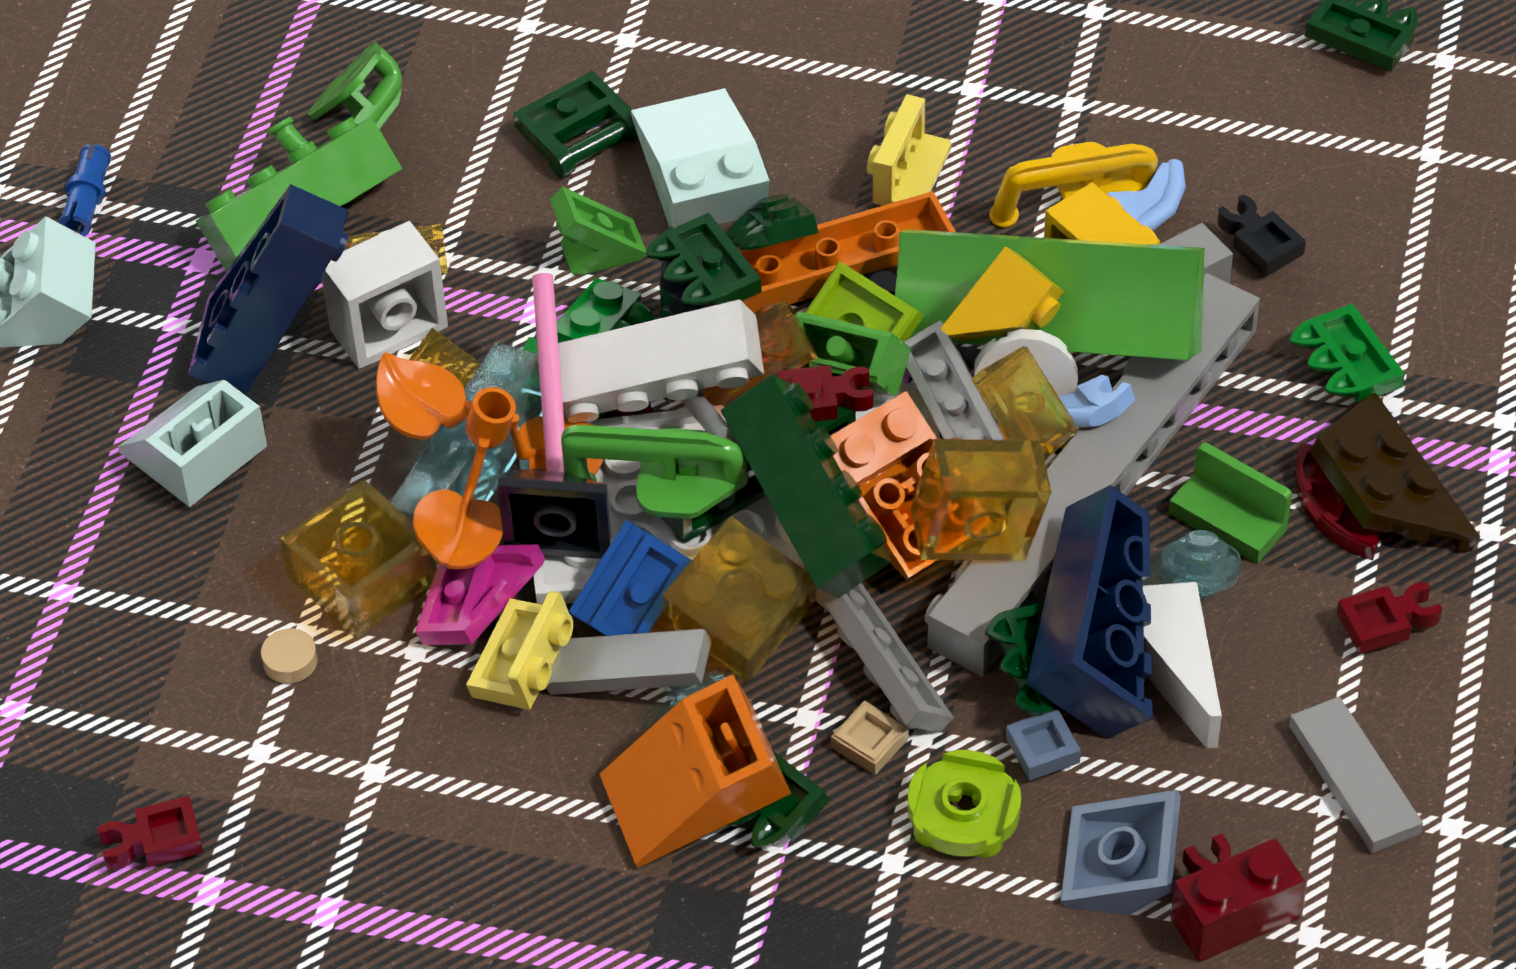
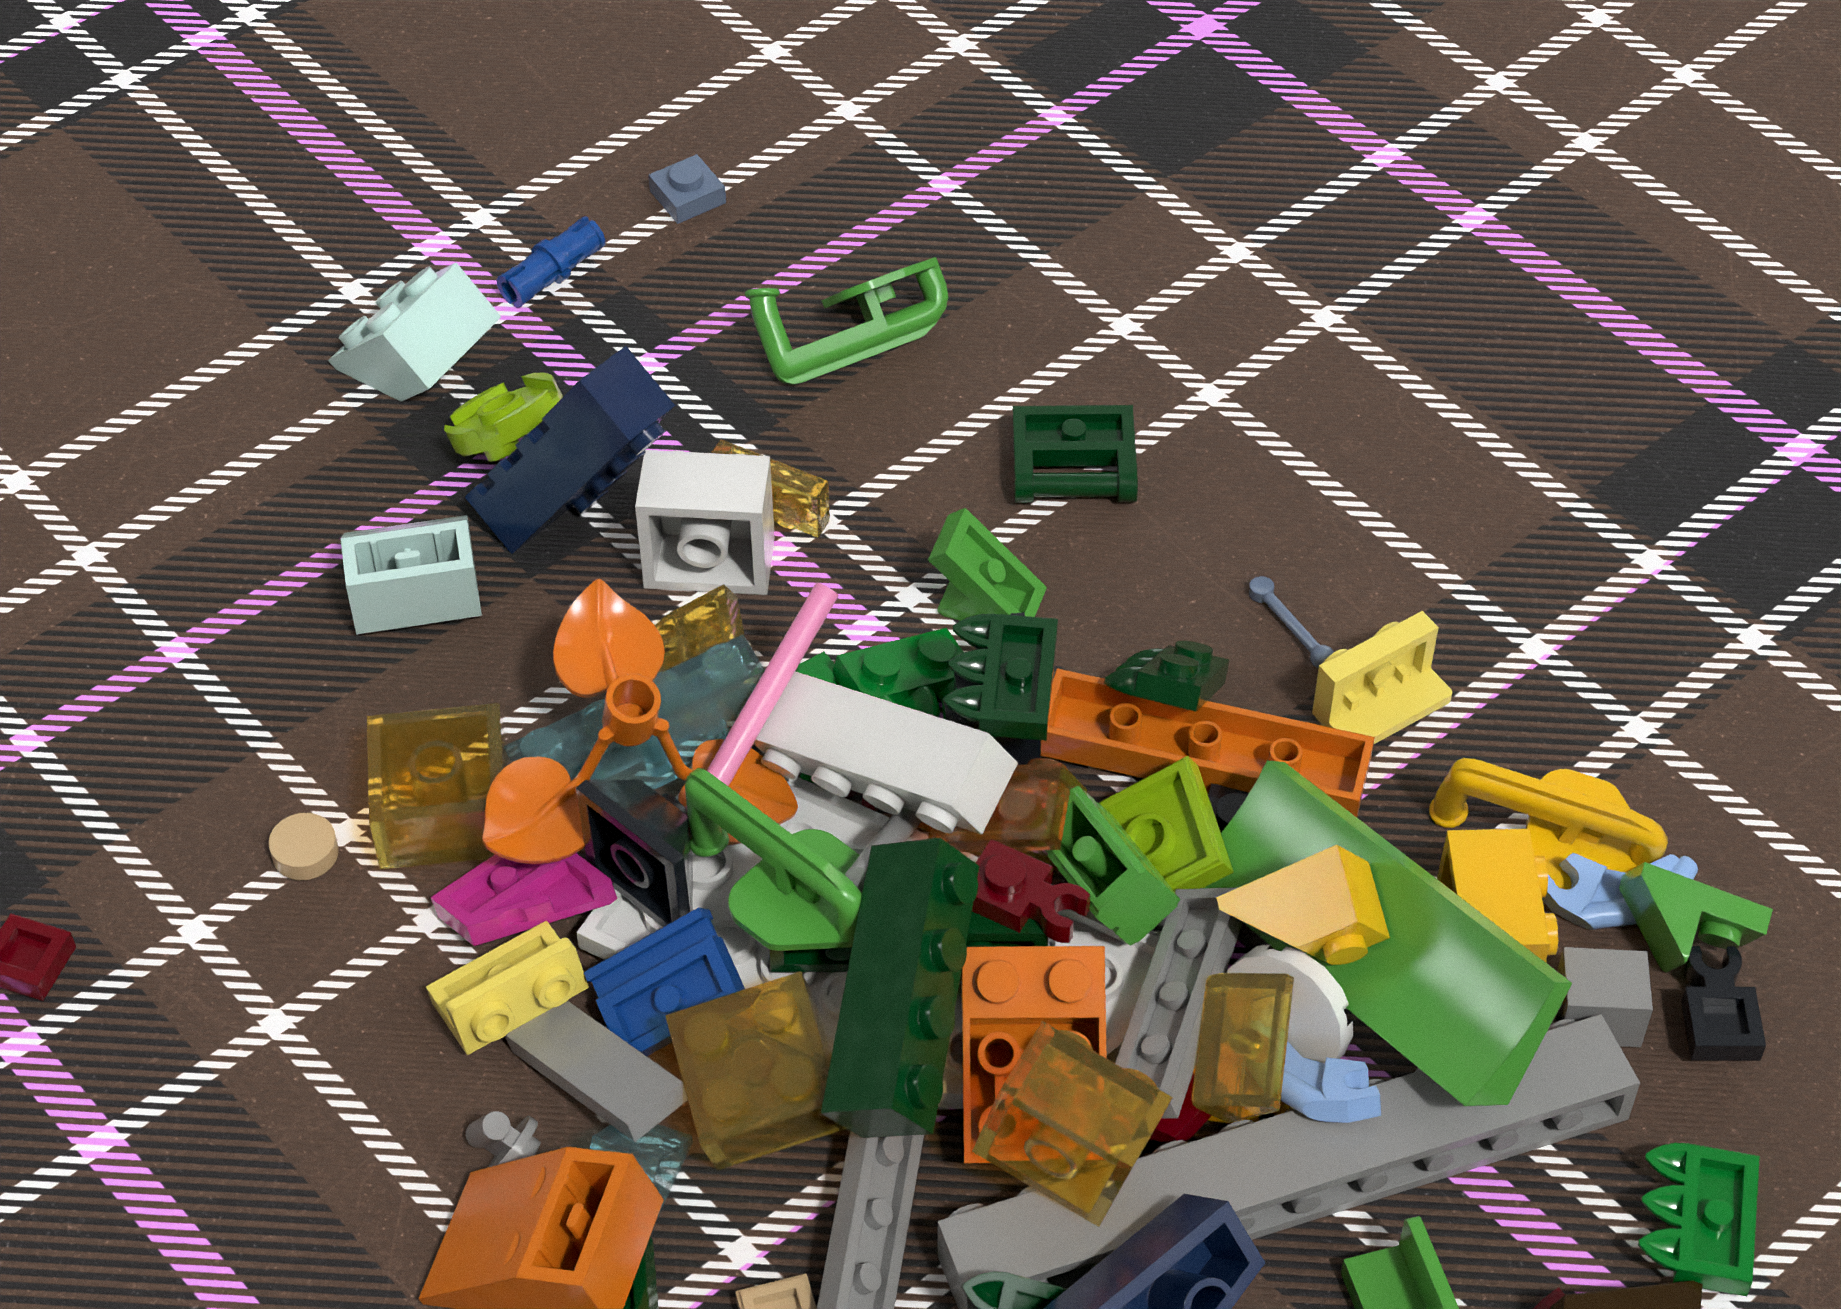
camera: 35 degrees right, 0 degrees up
(134, 90) = (687, 188): none -> sand blue plate
(166, 307) = (499, 418): none -> lime plate
(334, 171) = (744, 370): bright green brick -> none
(603, 741) = (503, 1140): none -> light grey plate
(701, 158) = (1157, 561): light aqua slope -> none
(773, 145) = (1262, 591): none -> sand blue hinge
(1201, 190) = (1675, 906): none -> bright green slope

